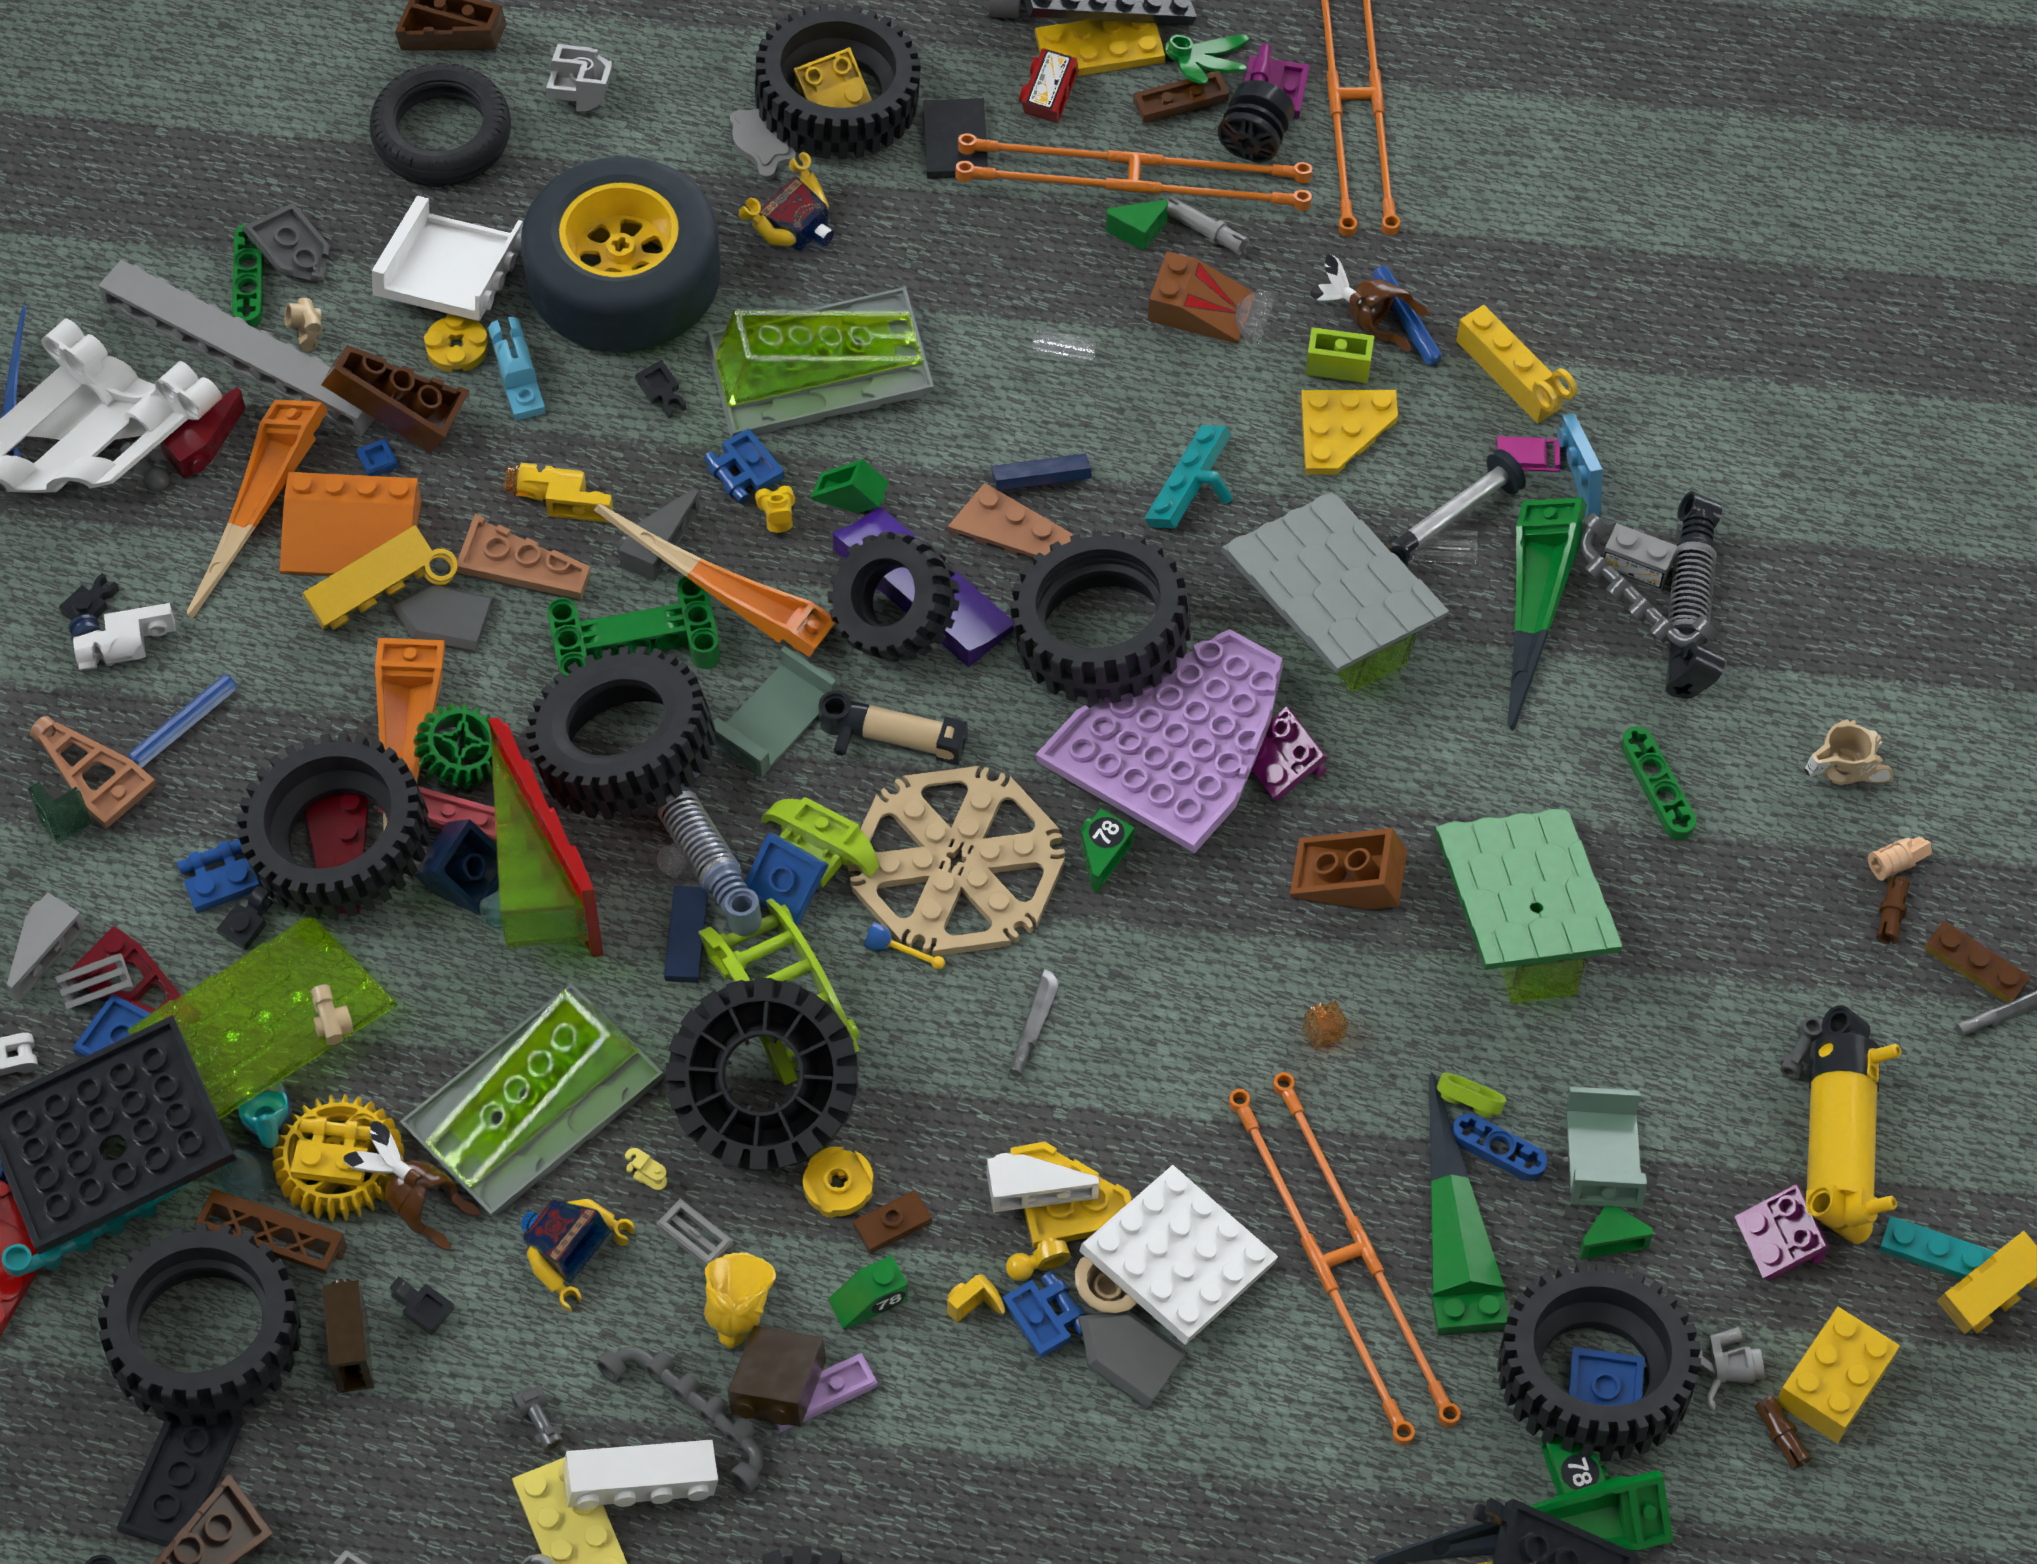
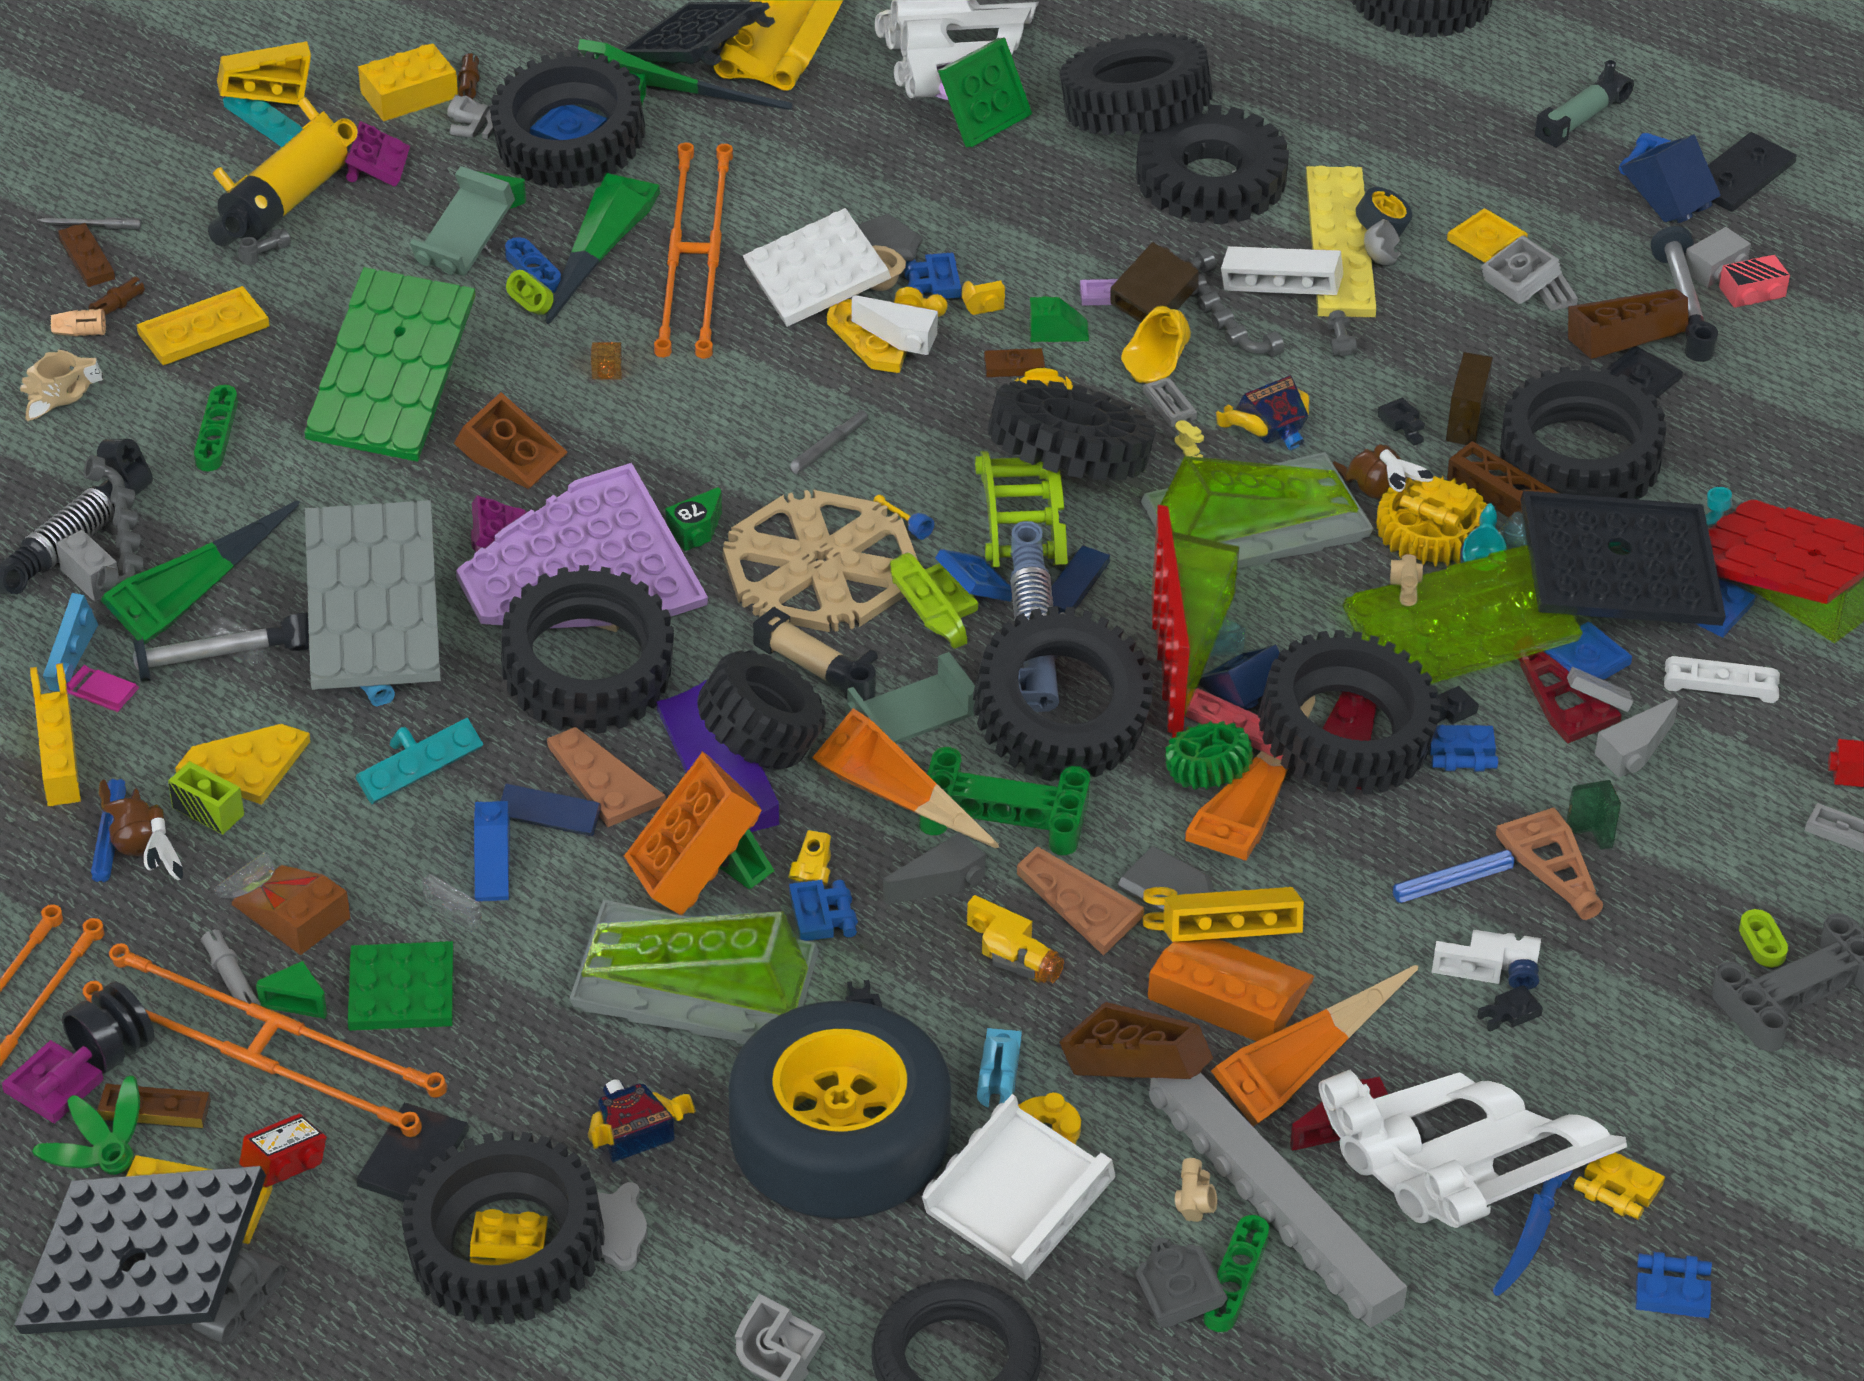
camera: 155 degrees left, 15 degrees down
(882, 443) = (692, 835): none -> orange slope
(1060, 271) = (401, 985): none -> green plate
(1065, 413) = (491, 850): none -> blue slope
(1774, 906) = (202, 325): none -> yellow plate

